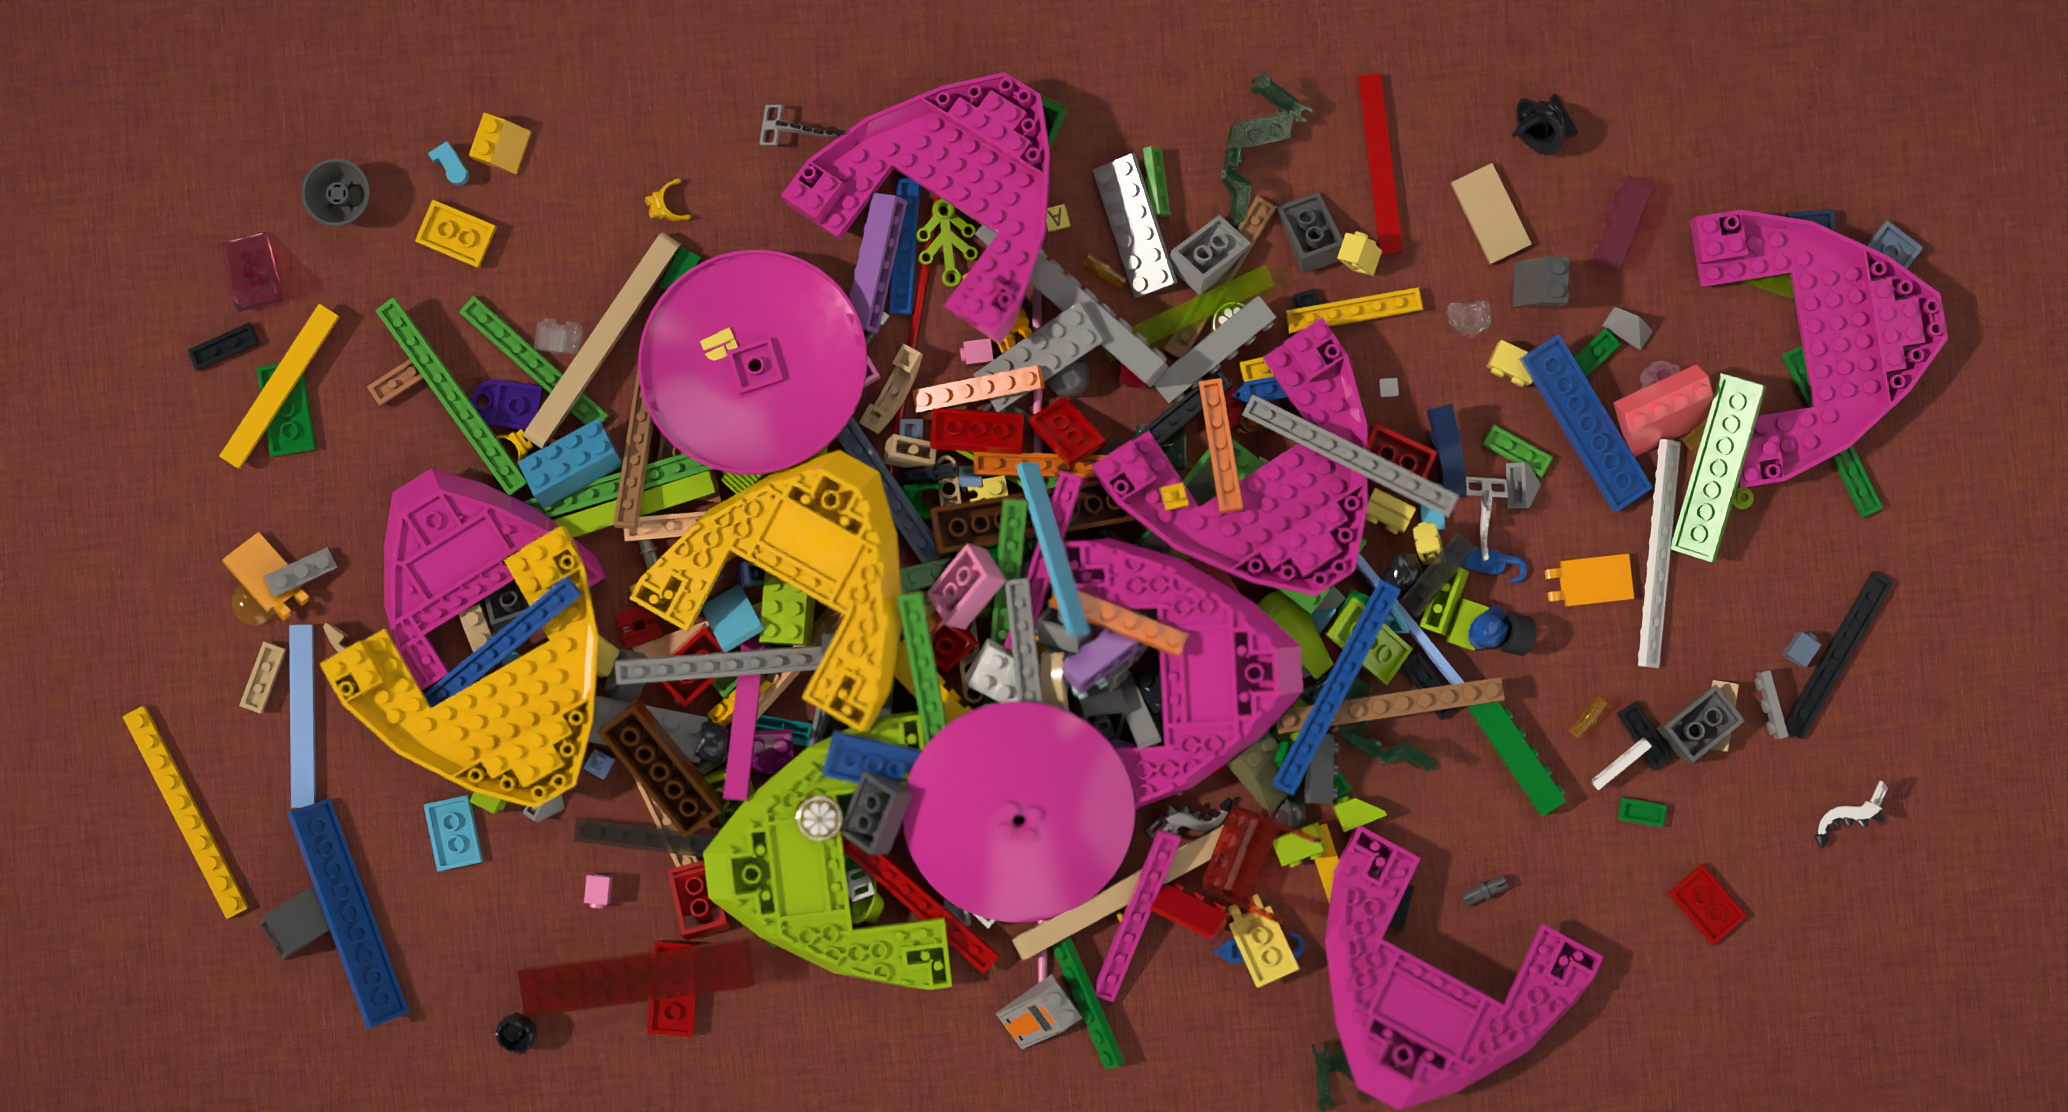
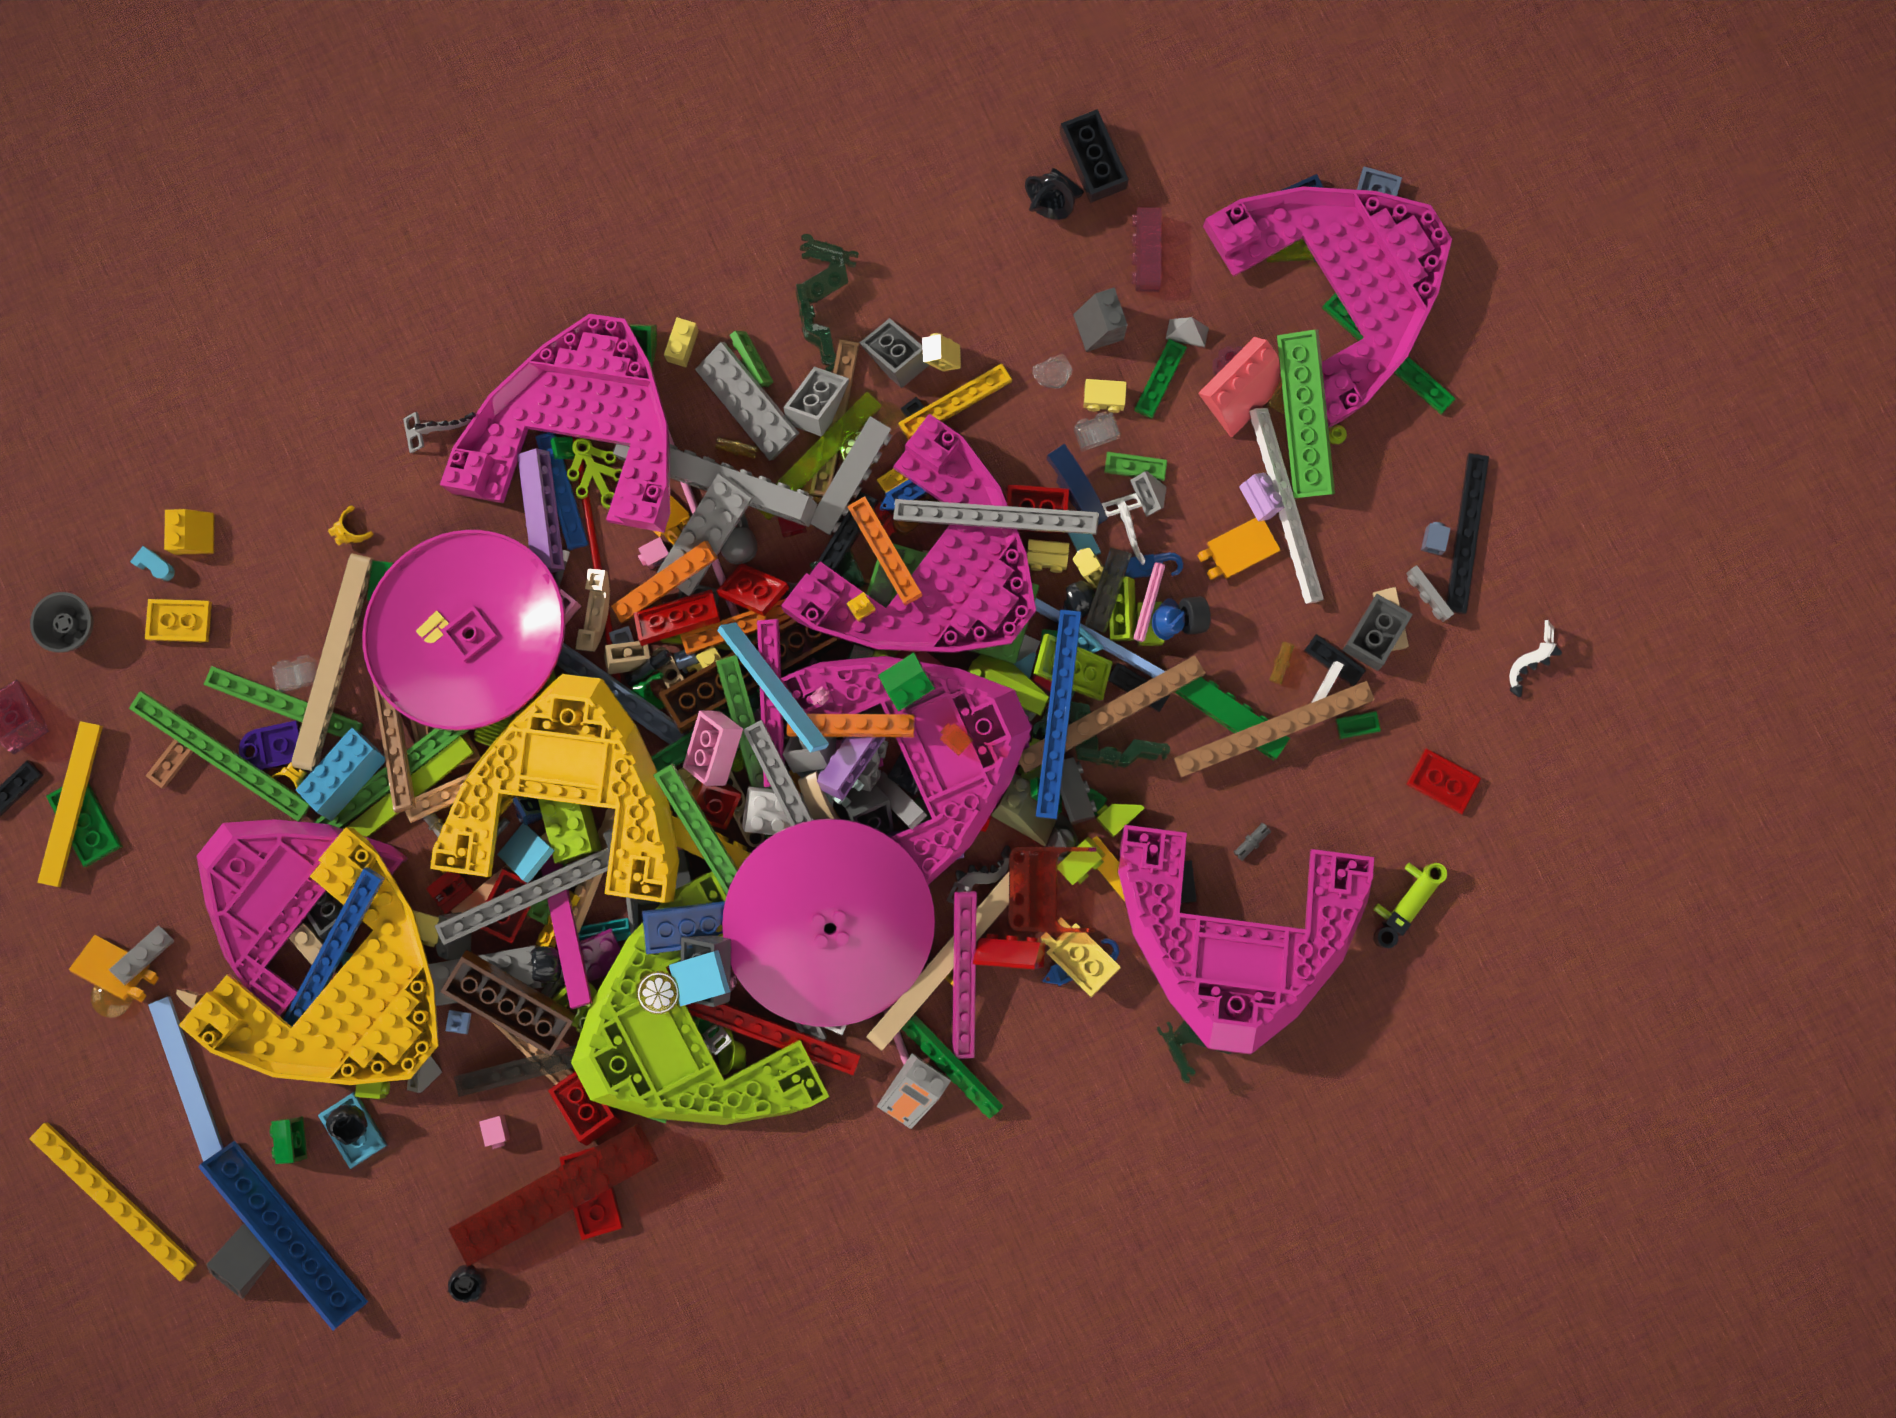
camera: 15 degrees left, 5 degrees down
(262, 677) = (140, 1058): tan plate -> none
(385, 819) = (288, 1140): none -> green slope
(452, 826) = (347, 1123): none -> black hair
(868, 820) = (700, 978): none -> medium azure tile
(922, 202) = (562, 447): none -> green tile
(1057, 218) = (680, 420): light yellow tile -> none
(1089, 135) = (681, 342): none -> light yellow brick
(1097, 577) = (820, 696): none -> bright pink plate
(1193, 598) = (906, 682): none -> green slope
(1221, 675) = (955, 738): none -> clear orange brick
(1380, 163) = (931, 277): red tile -> none
(1388, 387) = (1009, 454): white sticker -> none
(1475, 603) = (1149, 601): none -> bright pink axle
(1490, 398) = (1096, 431): none -> clear brick
(1491, 213) = (1038, 282): tan tile -> none
(1553, 785) = (1273, 729): none -> medium nougat plate
(1586, 423) = (1183, 420): blue plate -> none
(1603, 99) = (1094, 156): none -> black brick
(1604, 1029) = (1401, 917): none -> lime piece
(1637, 535) = (1262, 496): none -> lavender brick

